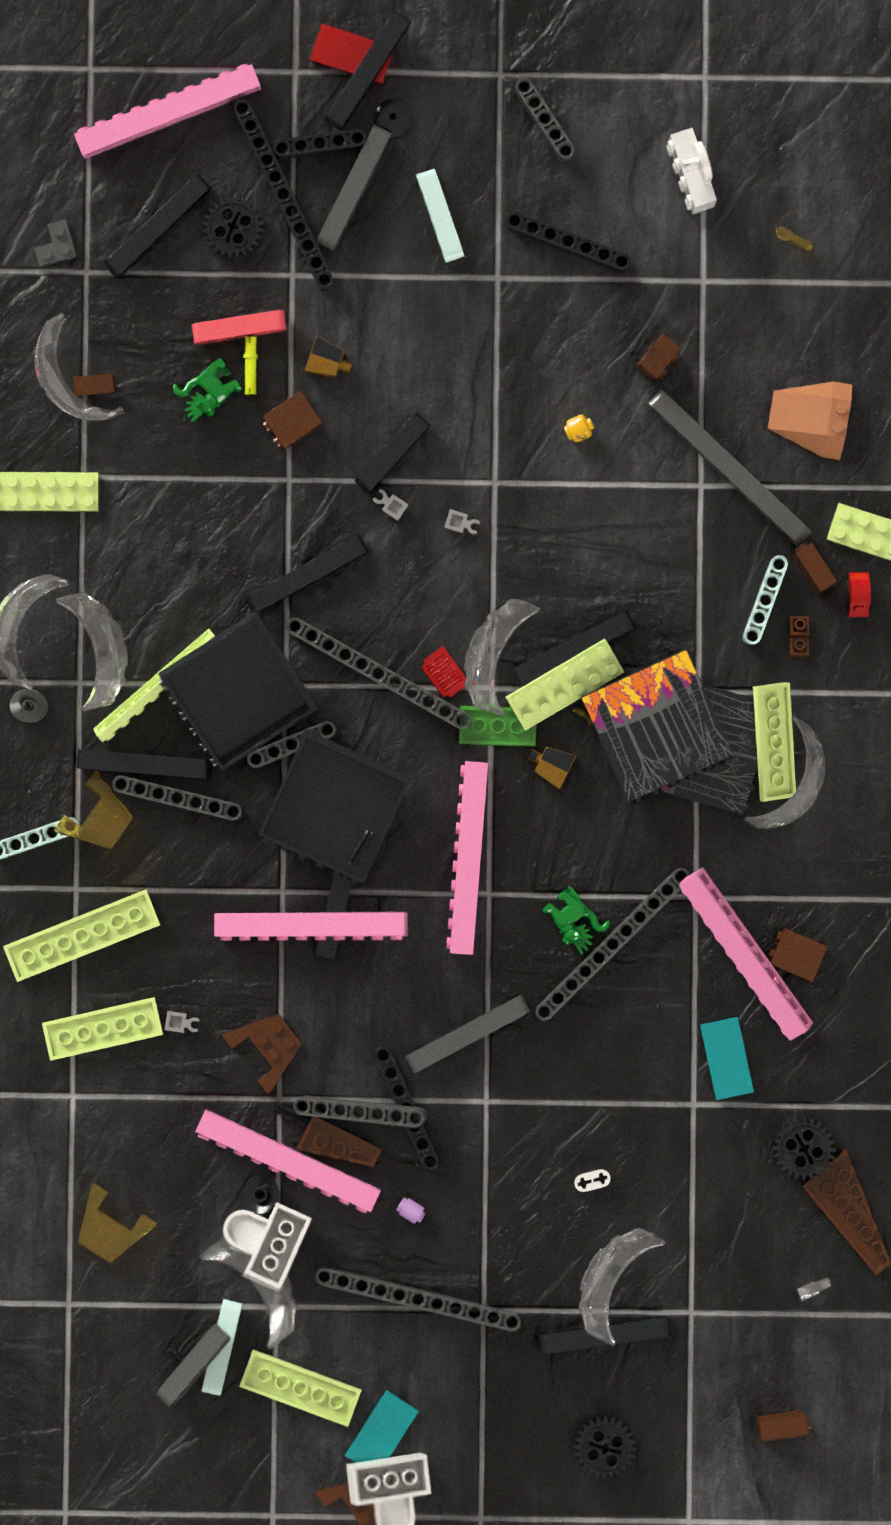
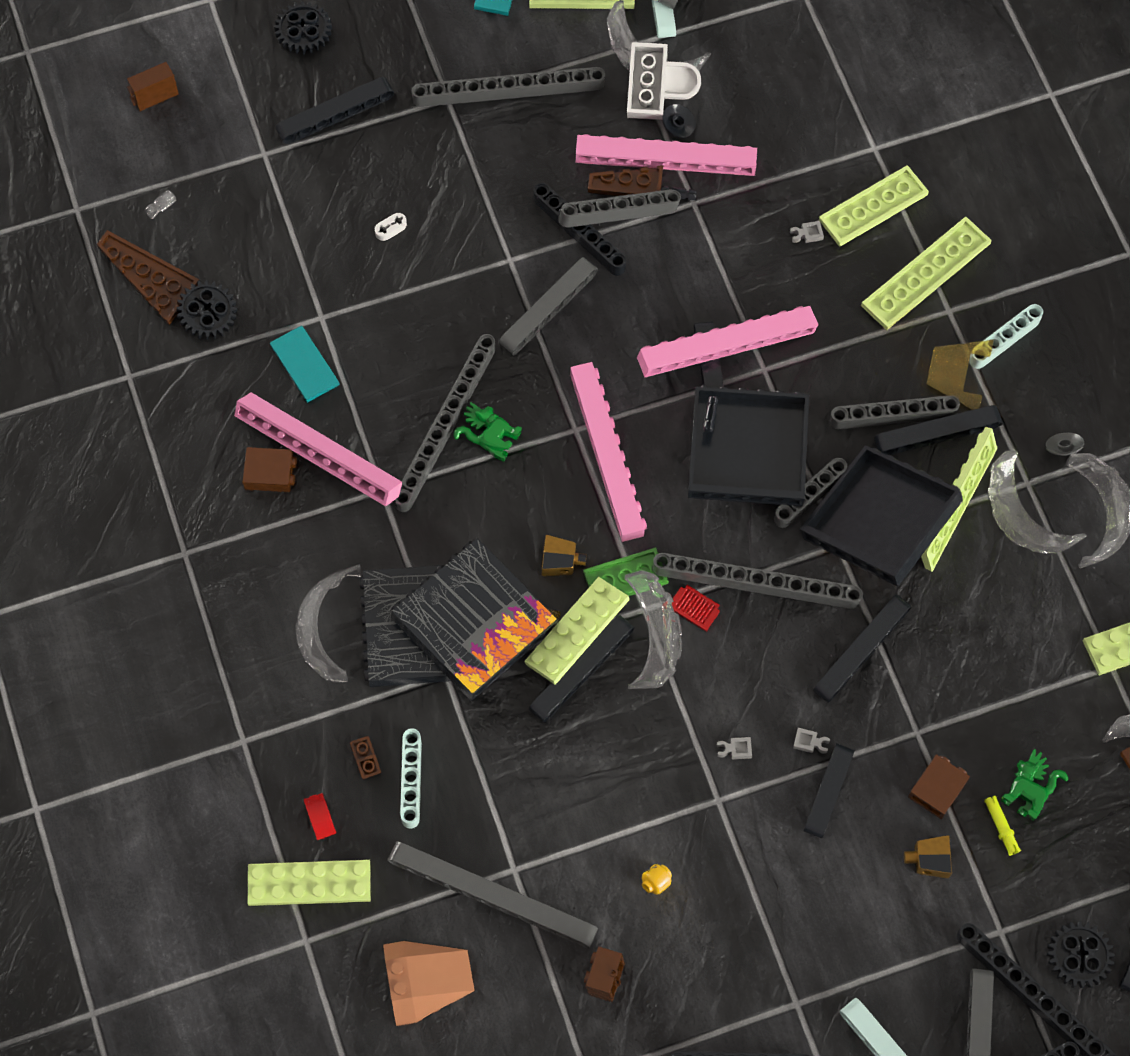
camera: 160 degrees right, 20 degrees down
(106, 1235) = (798, 53): clear yellow wing -> none
(239, 327) = (1030, 858): coral beam -> none
(273, 1040) = (720, 246): reddish brown wing -> none
(411, 1210) = (542, 151): lavender brick -> none
(603, 1274) = (354, 146): clear windscreen -> none
(774, 741) = (356, 645): yellowish green plate -> none
(813, 567) = (373, 822): reddish brown brick -> none

